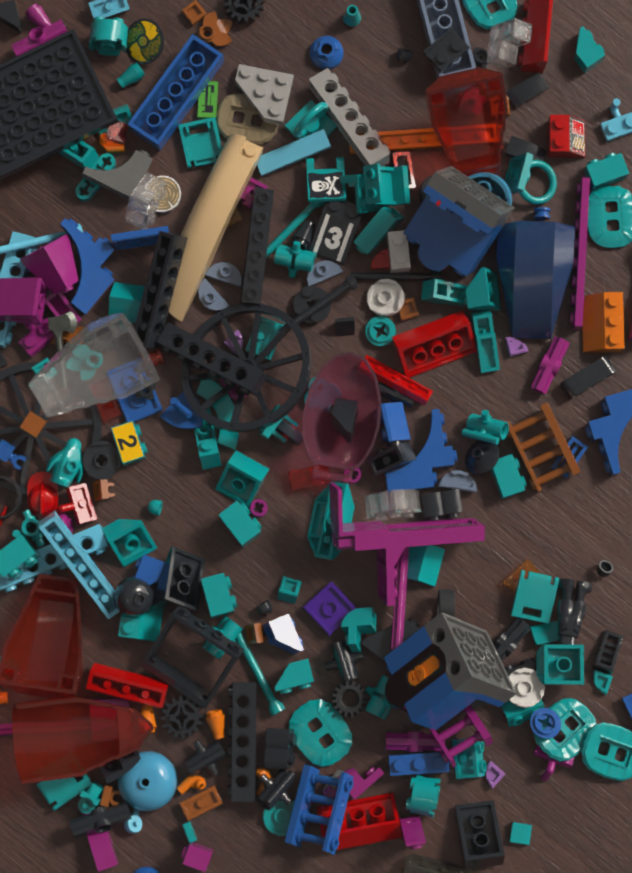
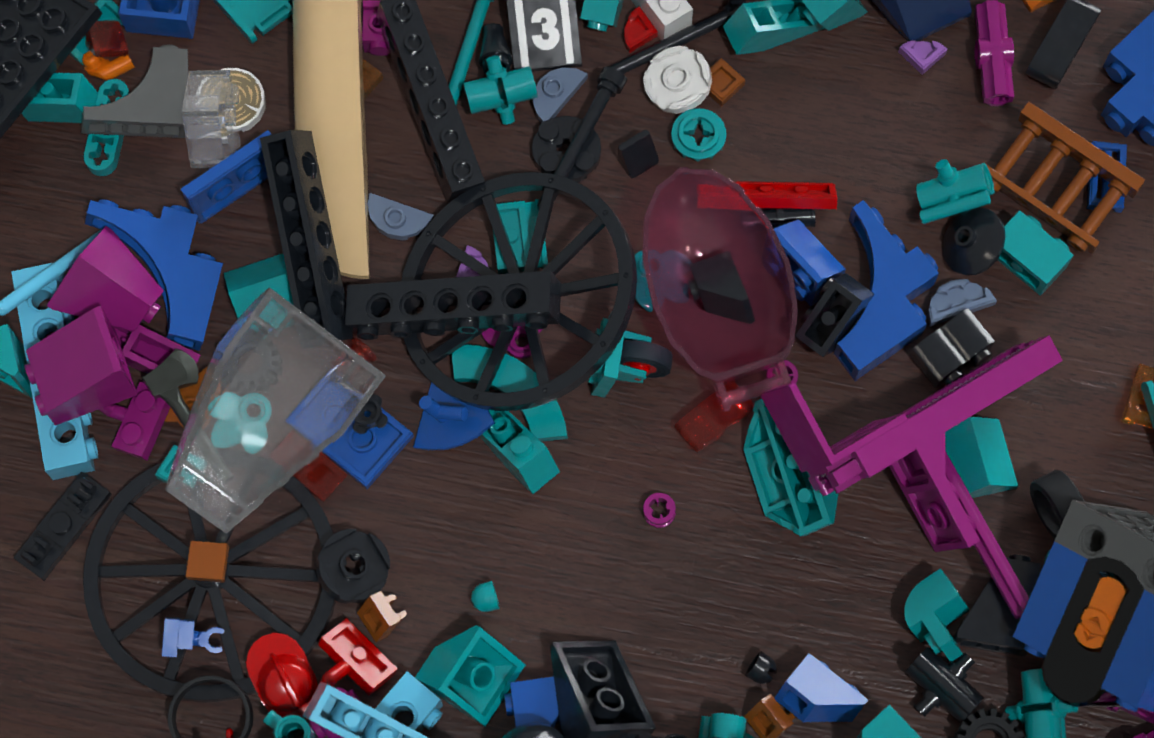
camera: 25 degrees left, 10 degrees down
(66, 464) = (299, 600): teal animal -> none
(129, 443) = (386, 514): yellow brick -> none
(218, 595) = (675, 683): teal brick -> none
(226, 273) = (400, 170): sand blue plate -> none
(240, 524) = (646, 546): teal brick -> none
(242, 478) = (606, 476): teal slope -> none
(289, 590) = (784, 618): teal slope -> none
(329, 608) = (869, 611): dark purple plate -> none
(392, 504) = (874, 384): clear brick -> none
(434, 344) = (796, 109): red slope -> none
(485, 341) = (873, 65): teal slope -> none

